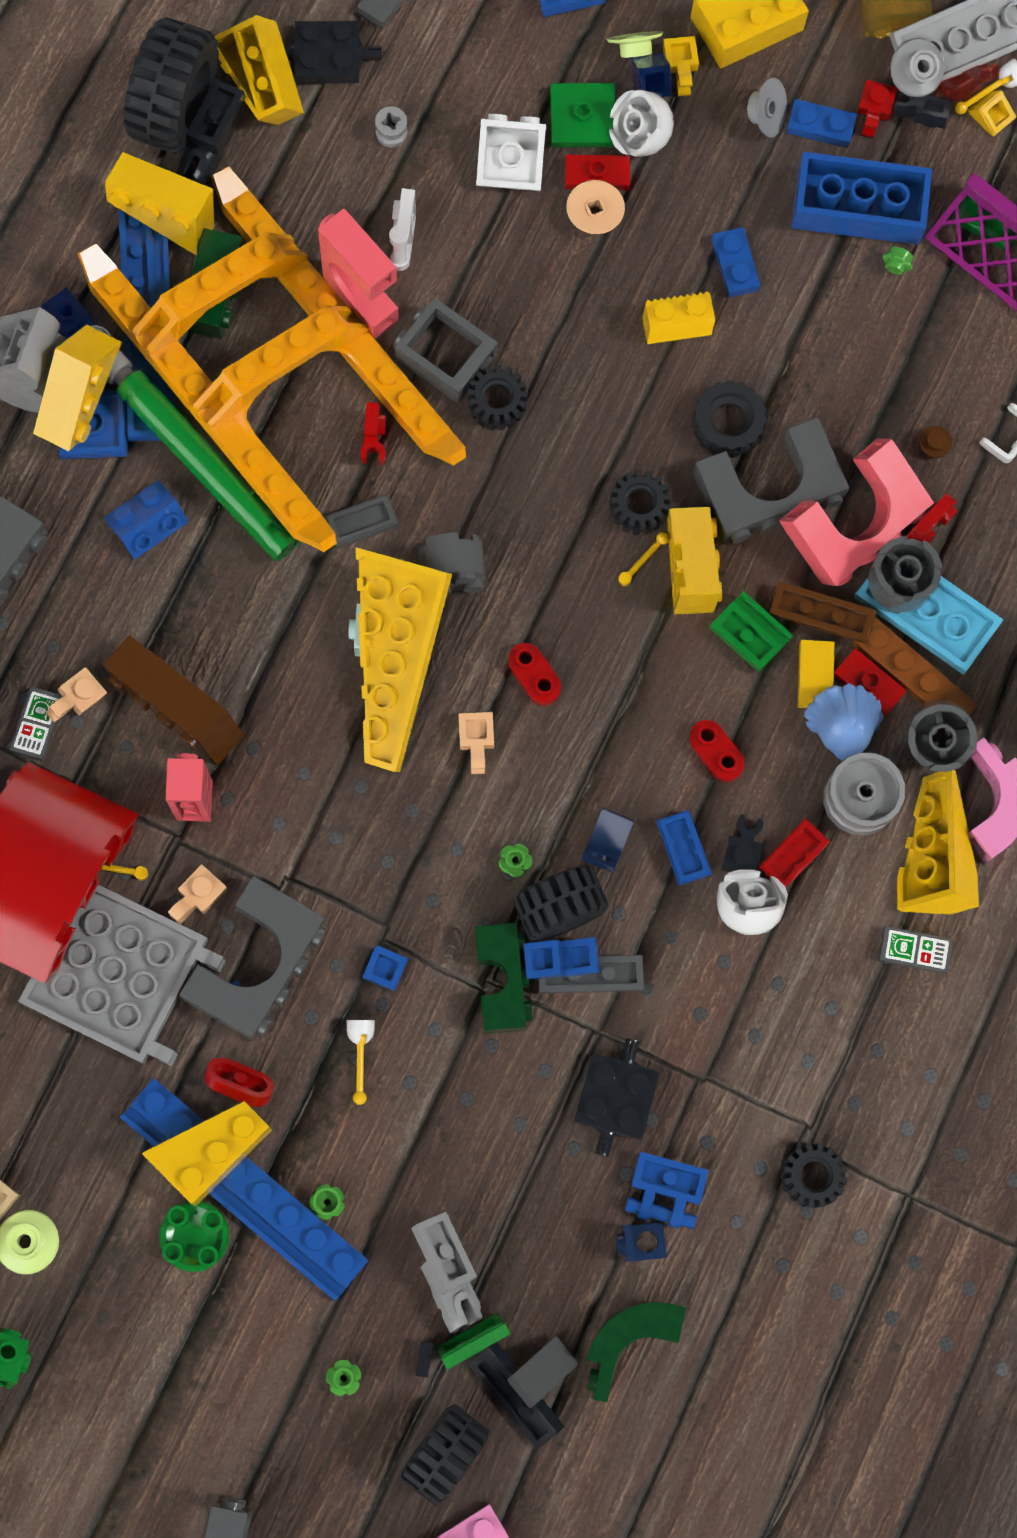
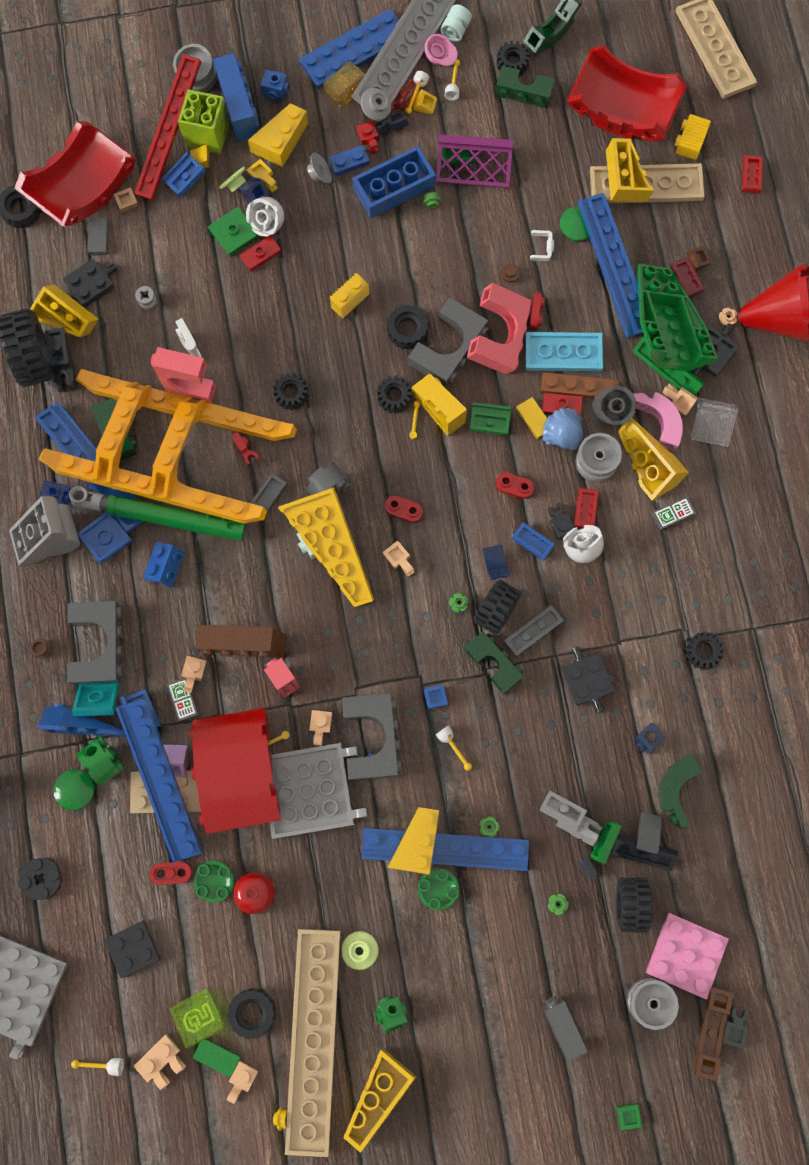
camera: 25 degrees left, 0 degrees up
(75, 386) = (85, 524): yellow wedge -> none
(161, 200) = (61, 406): yellow wedge -> none
(239, 1082) = (406, 800): red plate -> none
(453, 387) = (249, 401): dark grey window -> none
(511, 153) = (213, 271): white plate -> none
(561, 958) = (515, 632): blue slope -> none
(592, 195) = (269, 263): light nougat piece -> none
(668, 1179) = (639, 700): blue plate -> none
(735, 262) = (356, 252): blue plate -> none
(823, 612) = (517, 386): reddish brown plate -> none
(911, 557) = (541, 332): dark grey brick -> none

